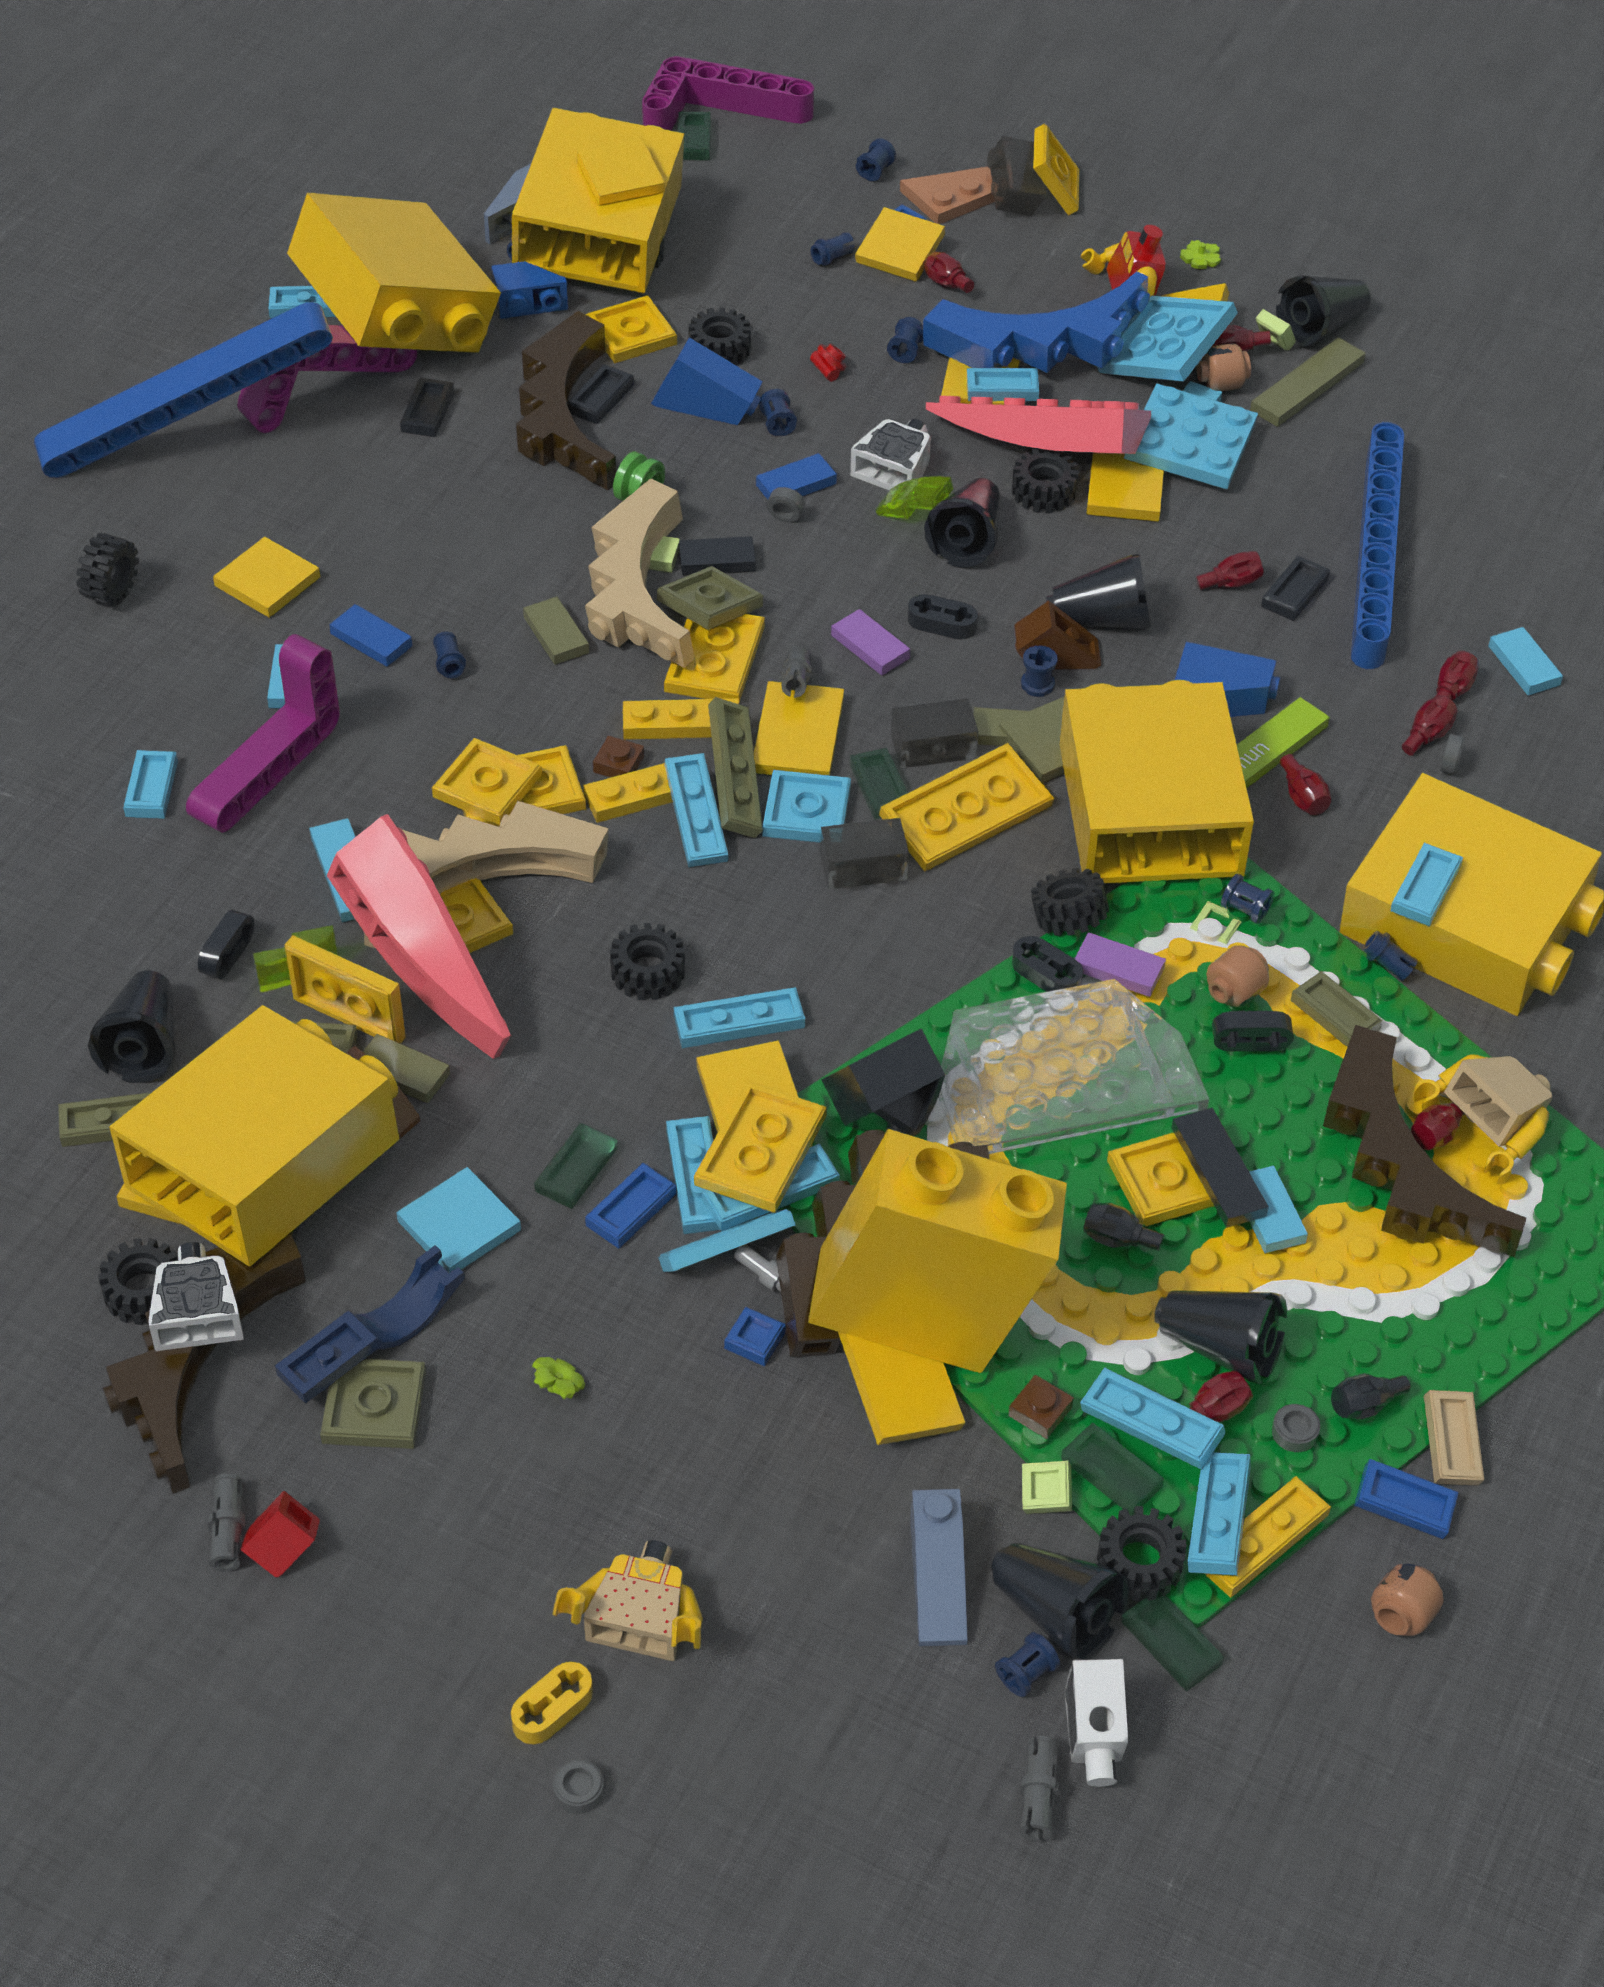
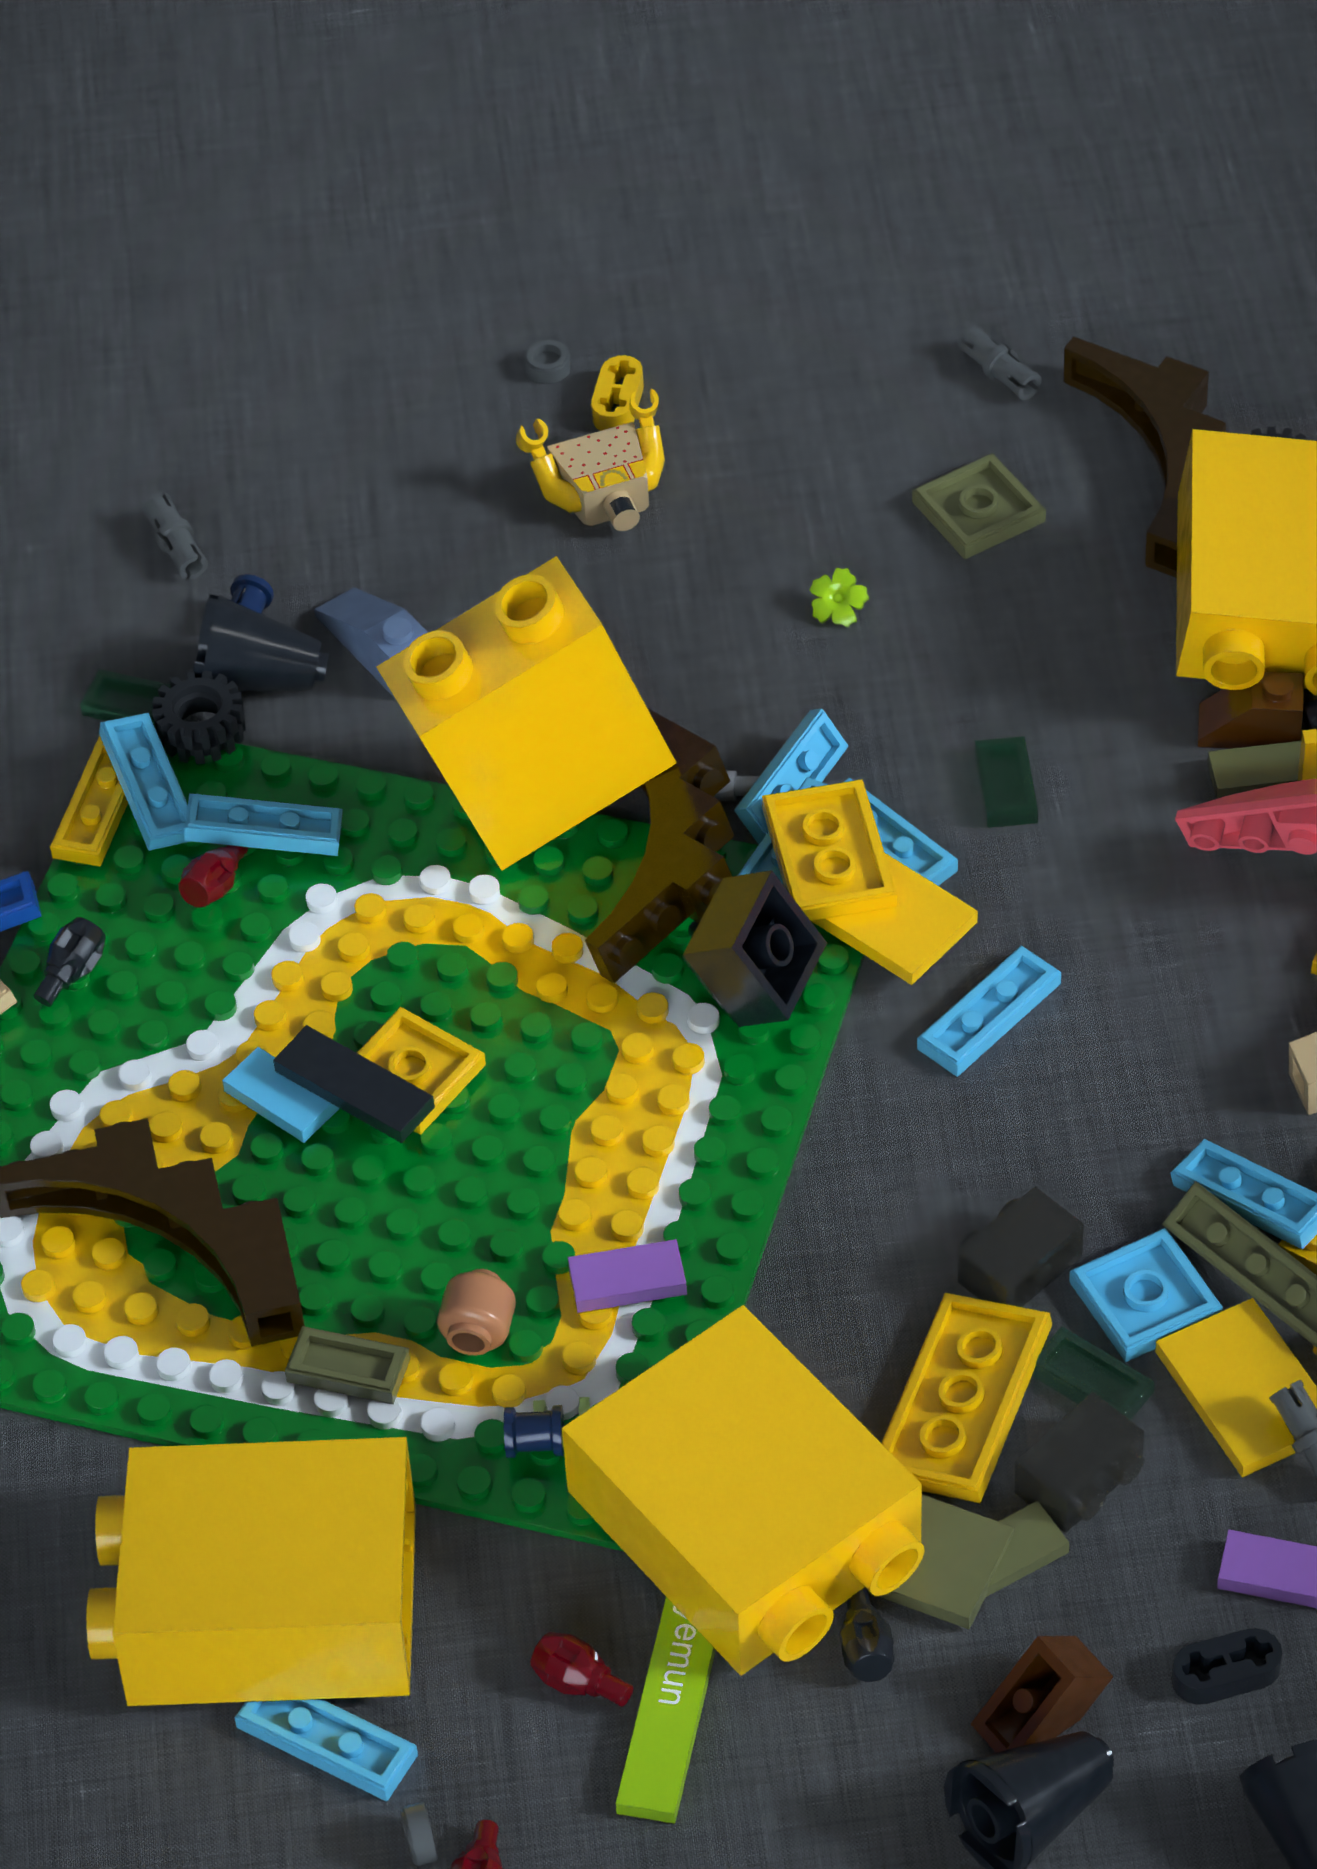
camera: 150 degrees right, 0 degrees up
(193, 1302) = (1163, 421): torso -> none
(280, 1534) = (943, 370): red panel -> none
(357, 1336) = (1036, 530): dark blue piece -> none
(459, 1219) = (1060, 674): medium azure tile -> none
(630, 1205) = (919, 776): blue tile -> none
(647, 979) = (1136, 977): black tyre -> none
(754, 1336) = (704, 723): blue tile -> none
(1039, 666) = (1023, 1624): dark blue bush -> none
(1041, 1406) = (378, 794): reddish brown plate -> none
(1046, 1487) = (327, 743): yellowish green tile -> none
(1047, 967) = (704, 1224): black beam -> none
(1063, 1067) = (600, 1125): clear plate -> none
(1070, 901) = (741, 1288): black tyre -> none
(1097, 1717) = (155, 571): white torso -> none
(1112, 1468) = (276, 778): clear green tile -> none
(1119, 1228) = (416, 979): black piece -> none
(1226, 1327) = (243, 922): black cone -> none
(1245, 677) = (788, 1761): blue slope -> none
(1252, 1031) = (419, 1266): black beam -> none
(1296, 1428) = (125, 905): dark grey tile -> none
(1426, 884) = (306, 1474): medium azure tile -> none
(1437, 1125) = (150, 1278): dark red piece -> none
(1499, 1099) = (96, 1323): tan torso -> none

